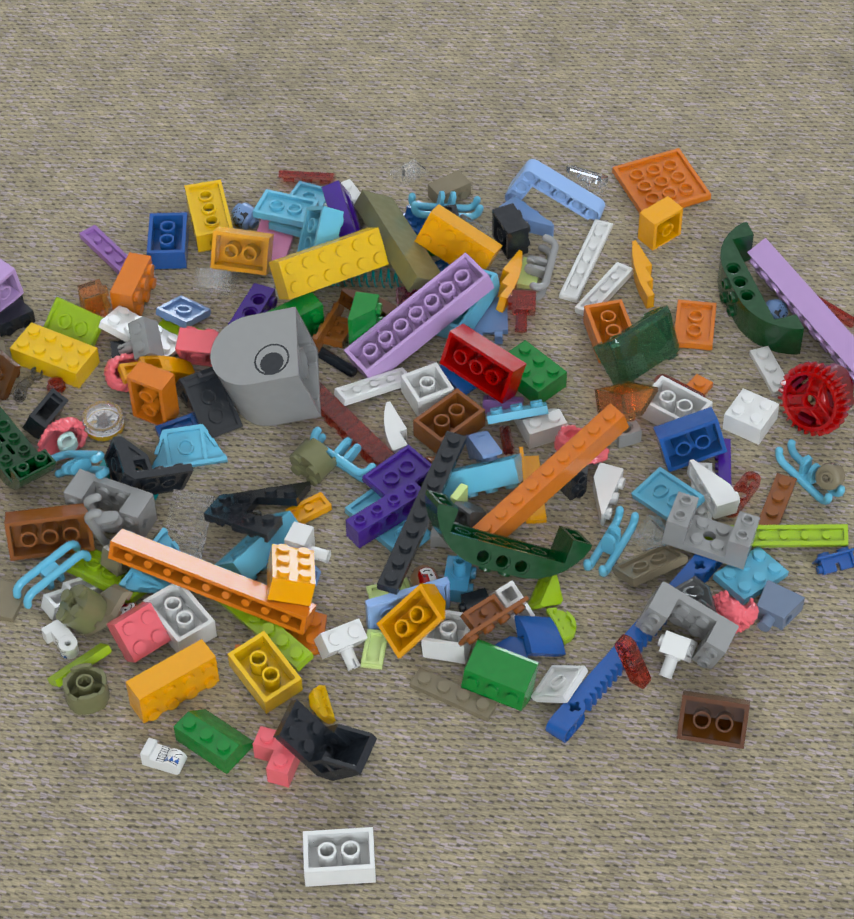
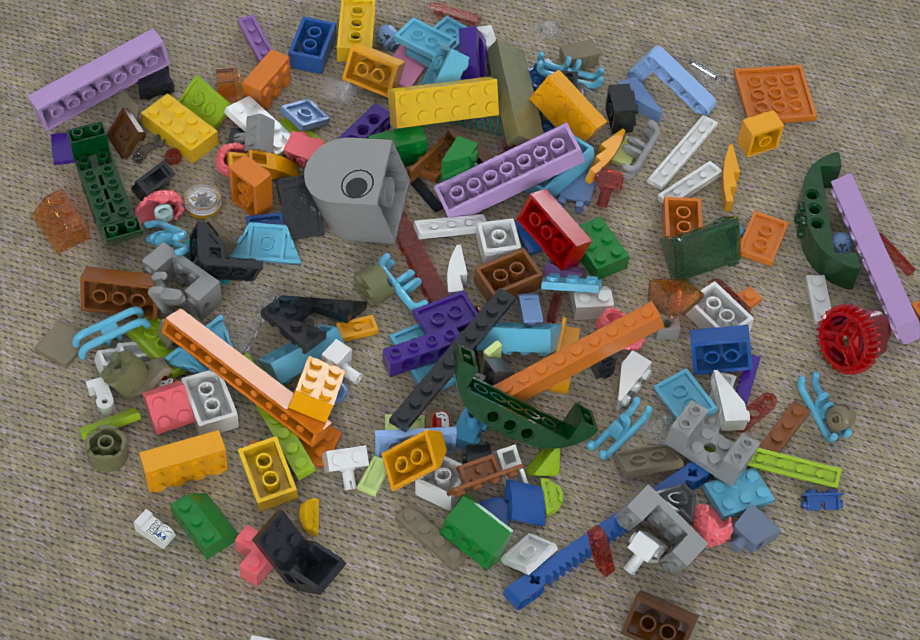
camera: 10 degrees right, 5 degrees up
(750, 416) = (786, 340): white brick -> none

